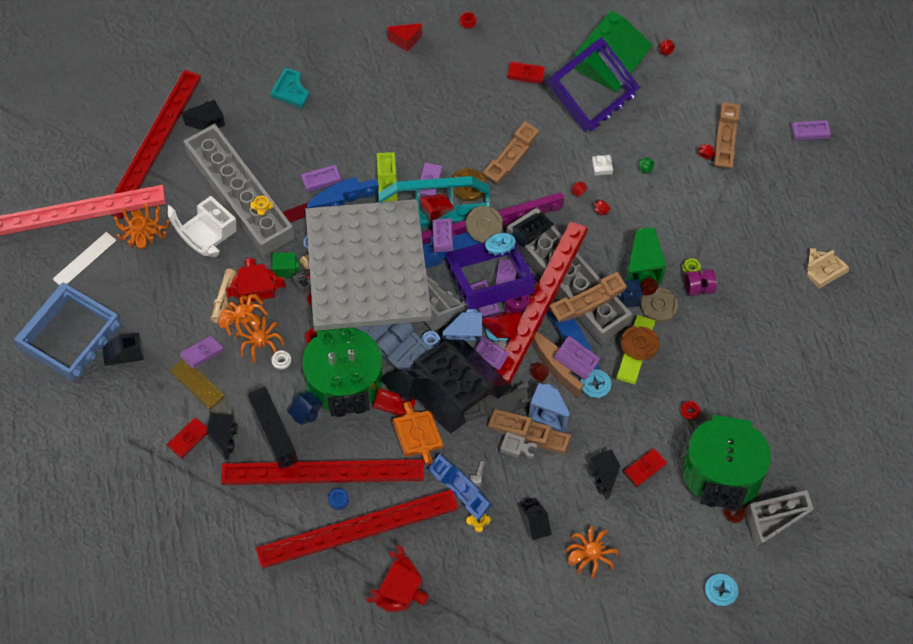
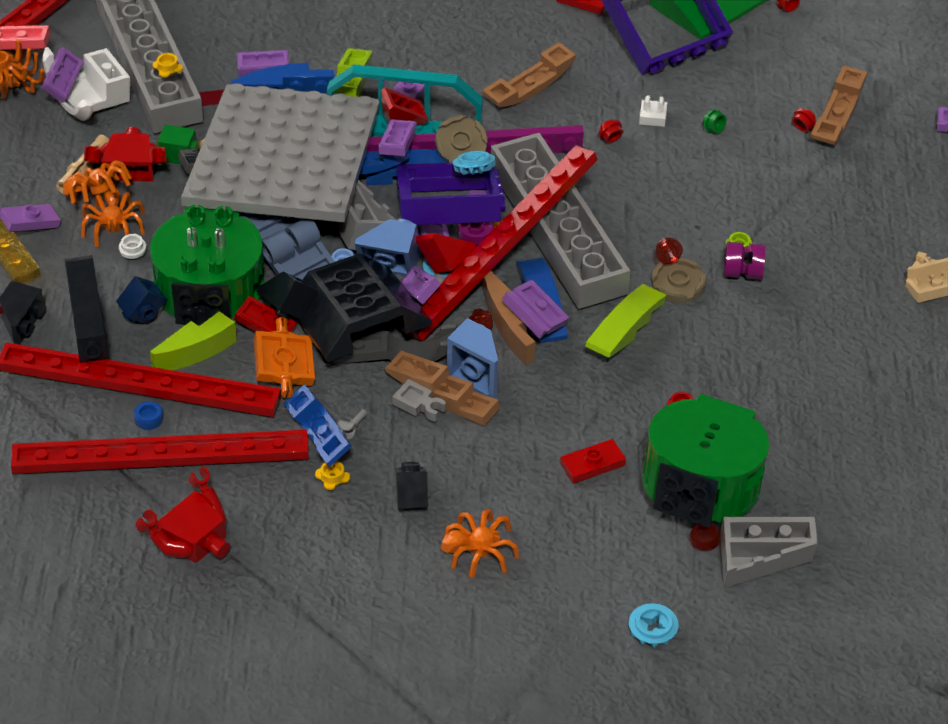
camera: 15 degrees right, 15 degrees down
(185, 224) = (62, 74): none -> medium lavender plate
(352, 434) = (195, 343): none -> lime slope
(469, 193) = (452, 103): pearl gold tile -> none
(525, 237) = (521, 151): black slope -> none
(590, 299) = (573, 243): medium nougat slope -> none
(600, 378) = (566, 346): medium azure gear -> none
(602, 207) = (635, 156): red plate -> none
(605, 470) = (533, 451): black slope -> none
(632, 295) = (638, 255): dark blue brick -> none
(640, 343) = (632, 309): dark orange tile -> none
(646, 257) = (668, 215): green slope -> none

